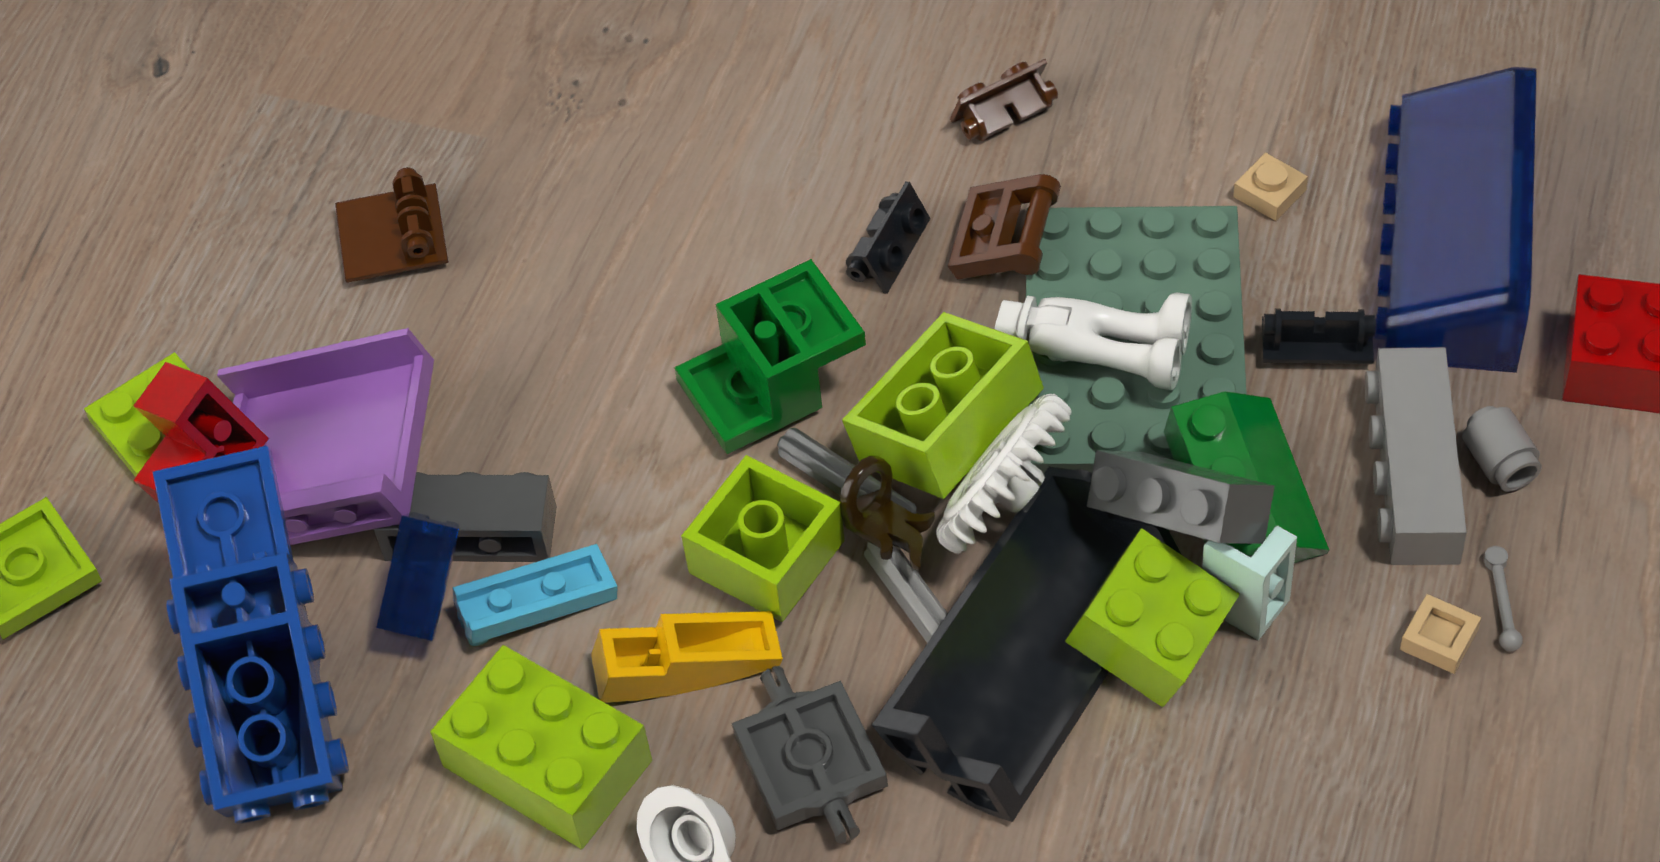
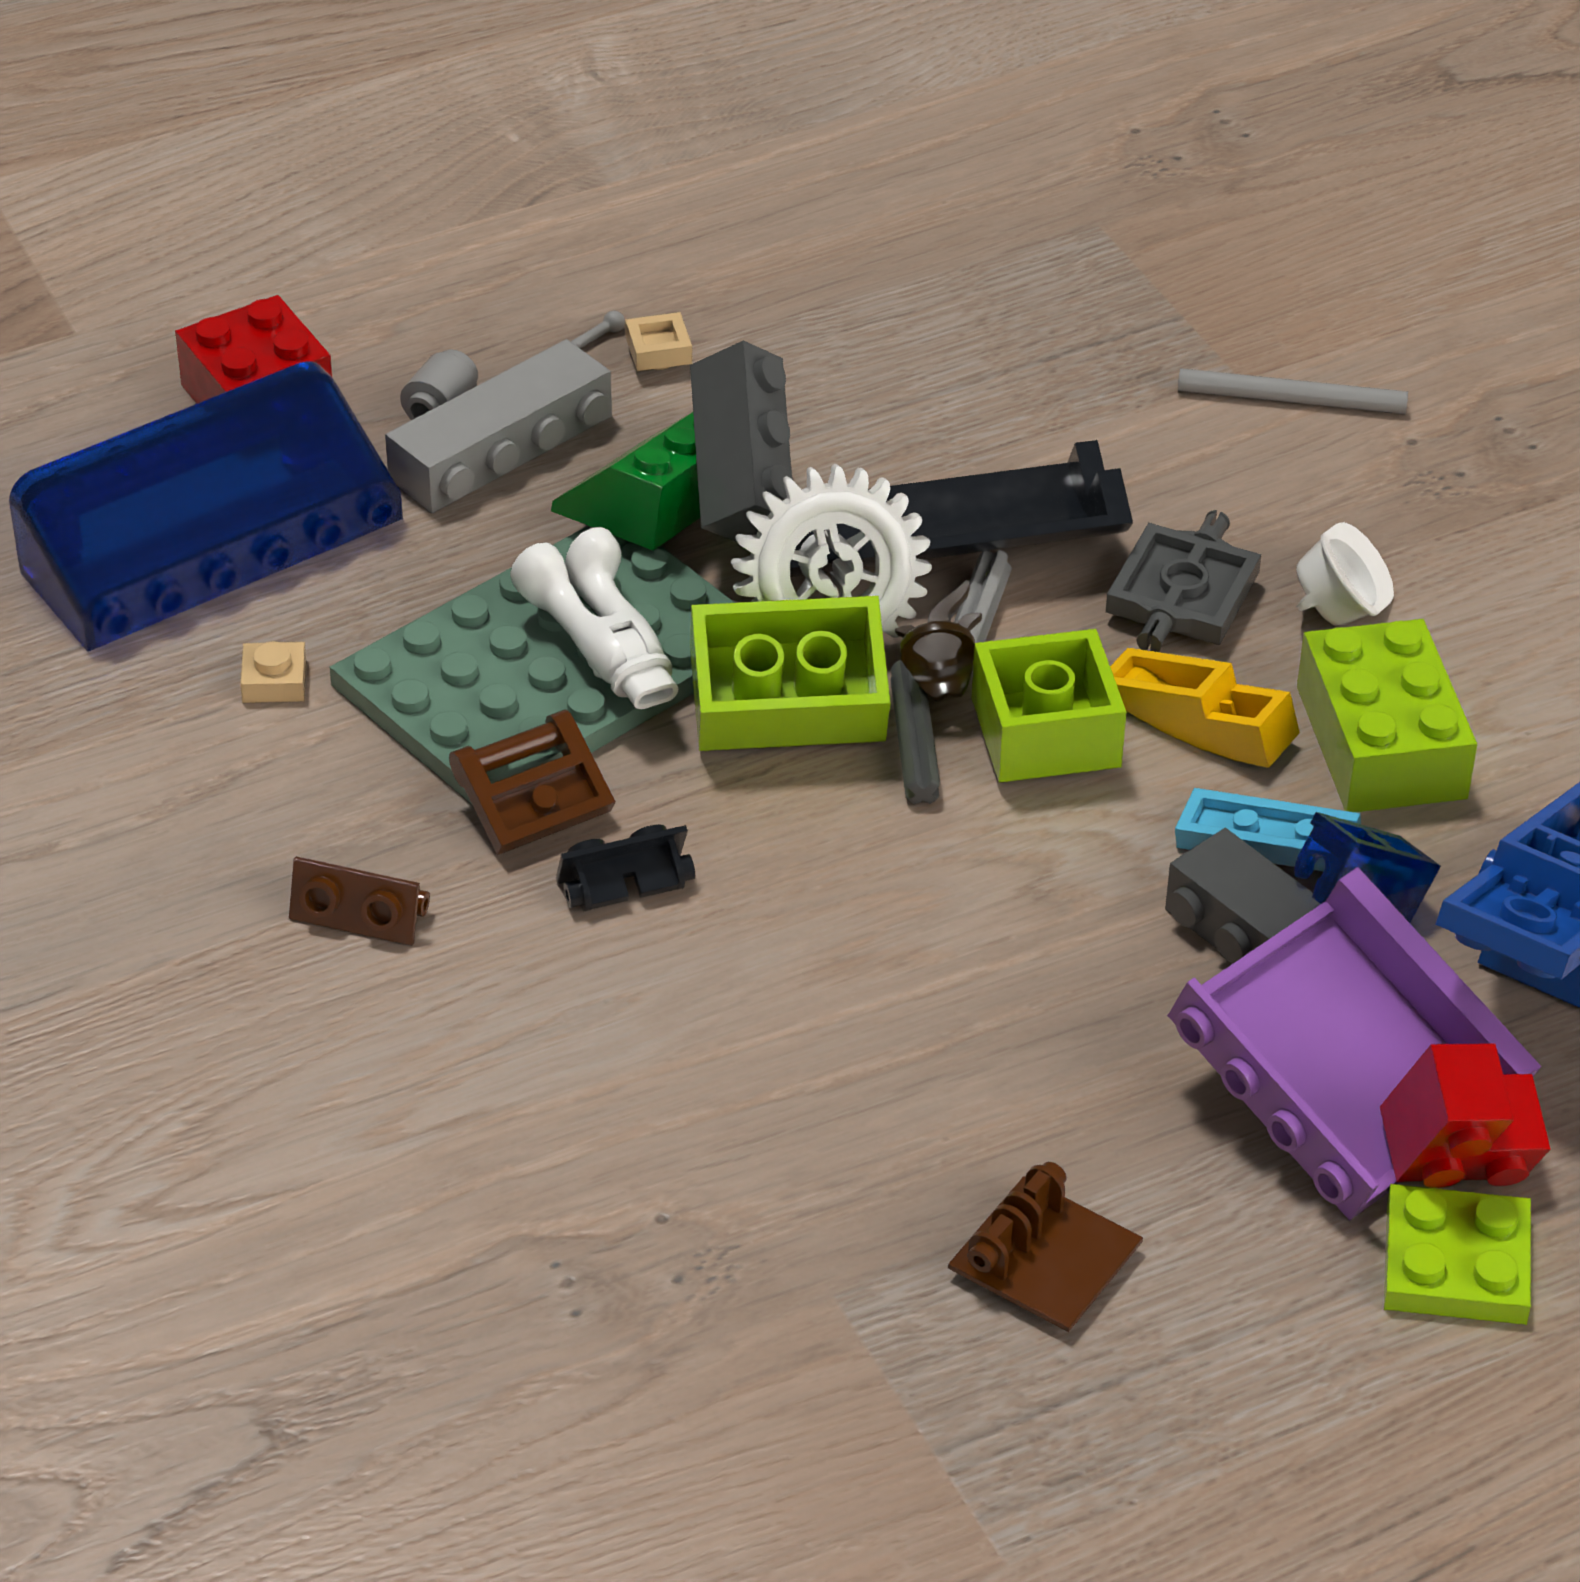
camera: 140 degrees left, 10 degrees down
(769, 356) = (875, 820): green bracket -> none
(1152, 618) = (854, 434): lime brick -> none
(1312, 339) = (428, 544): black hinge -> none

